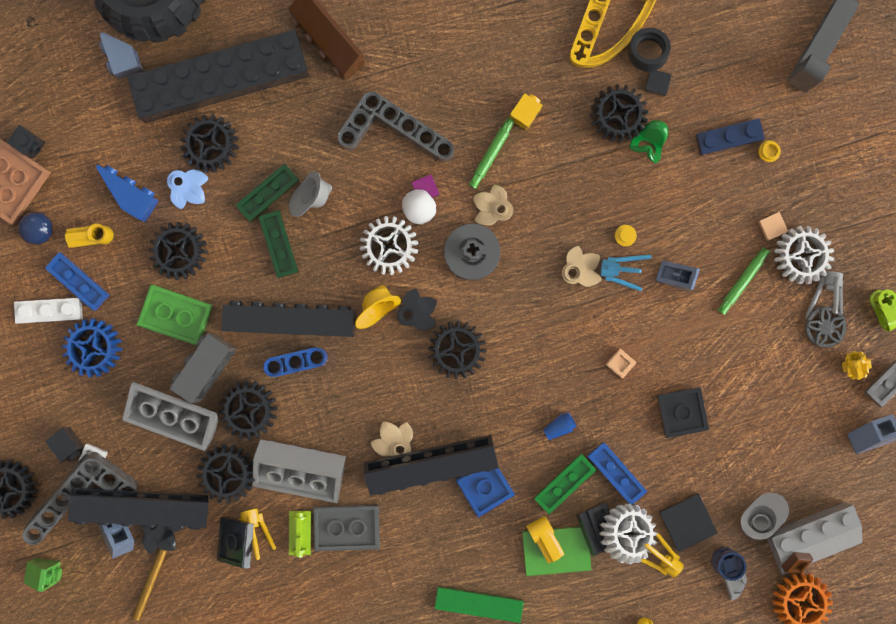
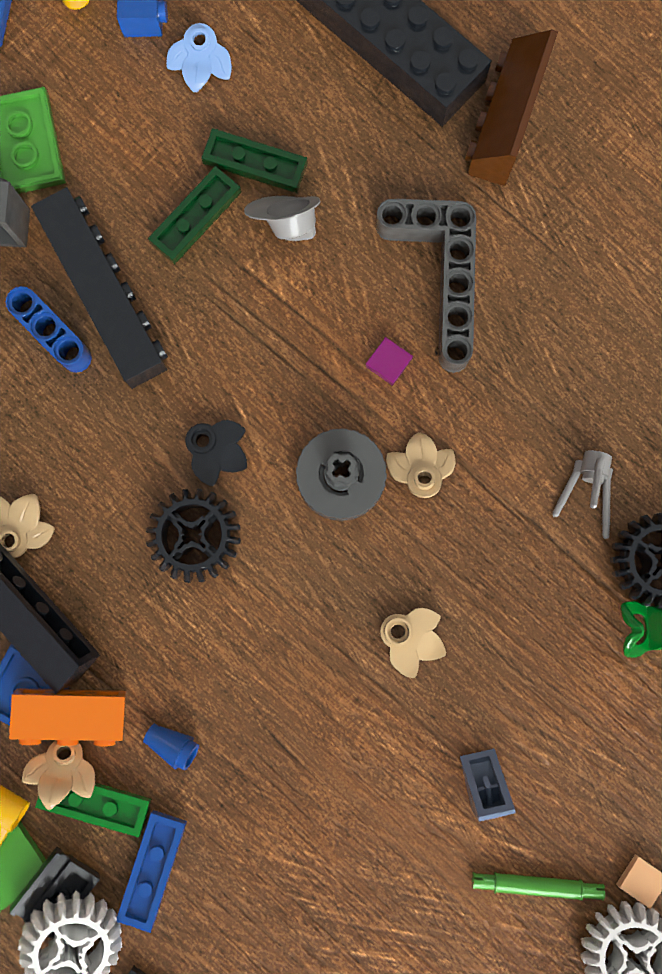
camera: 65 degrees right, 5 degrees down
(163, 240) = (97, 82): black gear -> none
(212, 135) = (293, 45): black gear -> none
(375, 306) = (186, 390): yellow piece -> none
(404, 254) = (266, 358): white gear -> none
(418, 206) = (358, 366): white hair -> none
(491, 153) = (493, 420): bright green piece -> none
(513, 469) = (67, 716): none -> orange brick
(526, 111) = (579, 430): yellow brick -> none
(541, 492) = (59, 776): none -> tan plate
(551, 116) = (596, 471): none -> light grey plant
(611, 268) = (437, 682): dark azure plant -> none
(620, 363) = (312, 778): light nougat tile -> none
(625, 235) = (496, 674): yellow plate -> none
(682, 412) = (295, 914): black plate -> none

